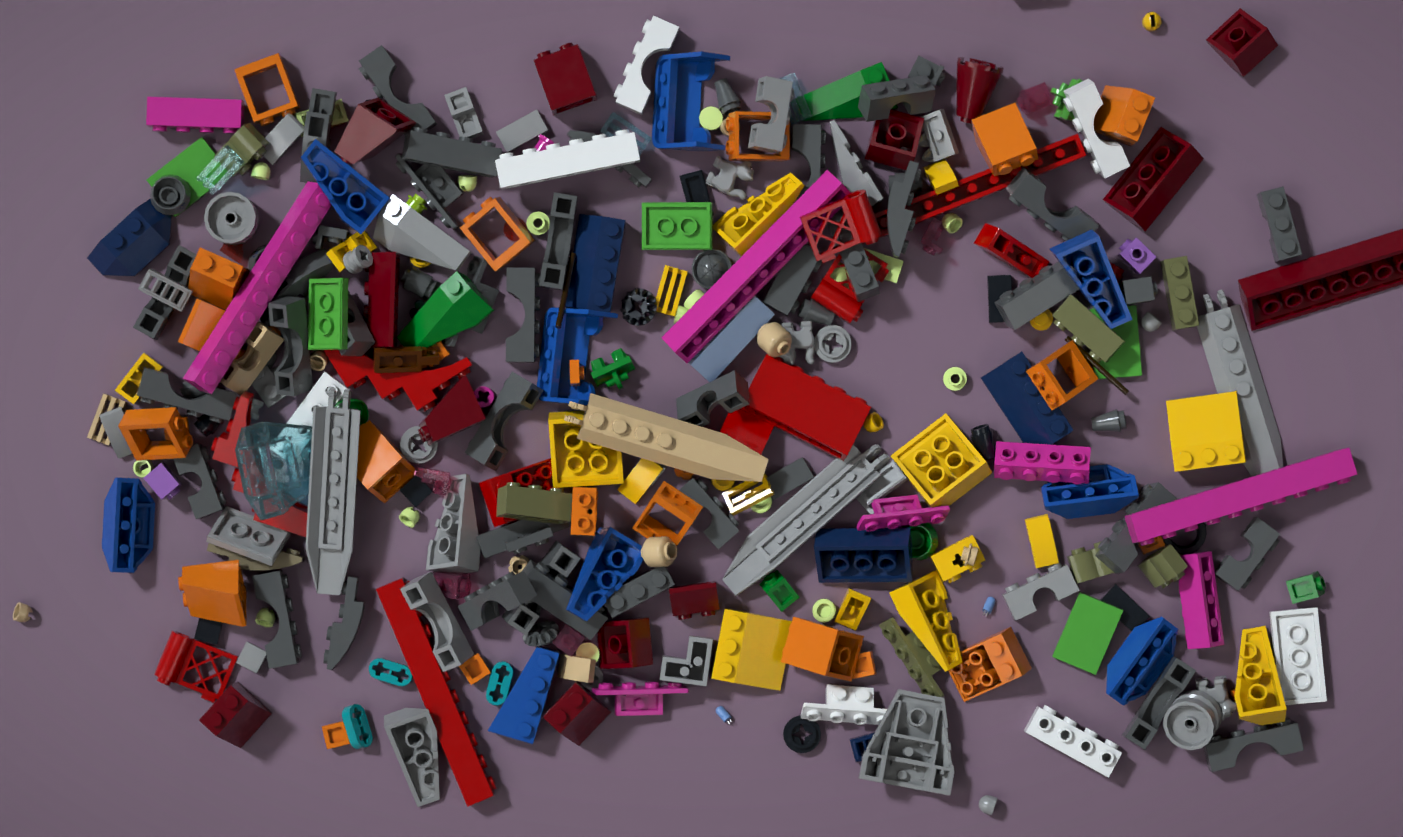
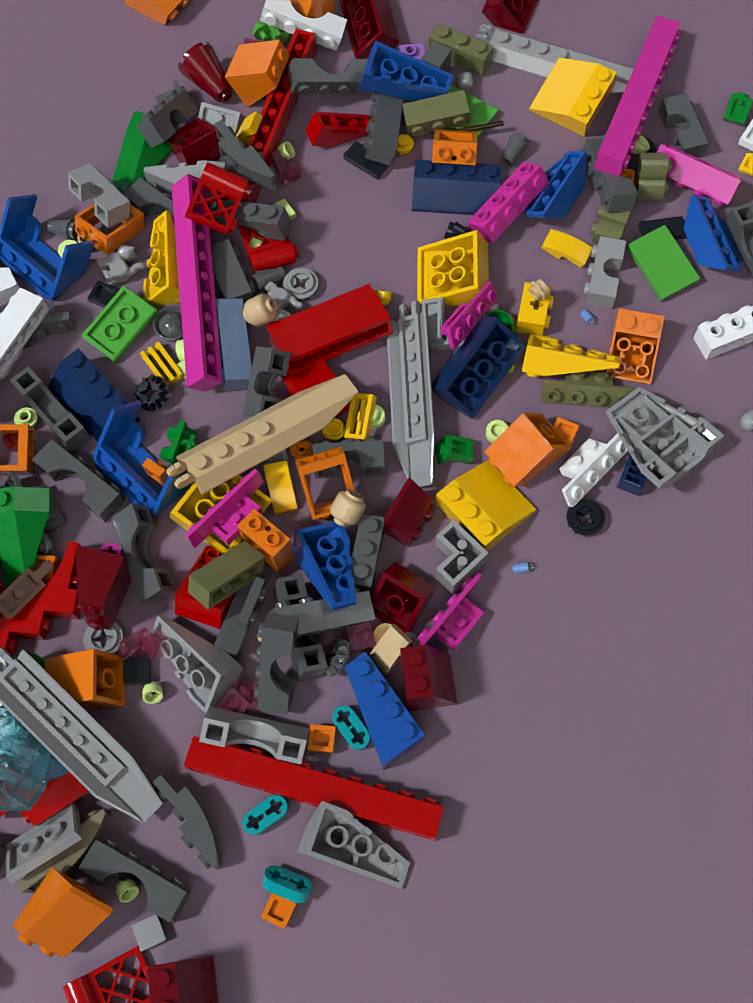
camera: 45 degrees left, 20 degrees down
(208, 631) = (92, 953): black tile -> none
(565, 290) = (95, 436): dark brown axle -> none
(583, 469) = (228, 513): none -> dark pink bracket
(789, 477) = (374, 380): dark grey tile -> none
(852, 609) = (510, 402): yellow slope -> none
(947, 378) = (397, 229): yellowish green plate -> none
(1192, 538) = (642, 145): none -> yellowish green hinge

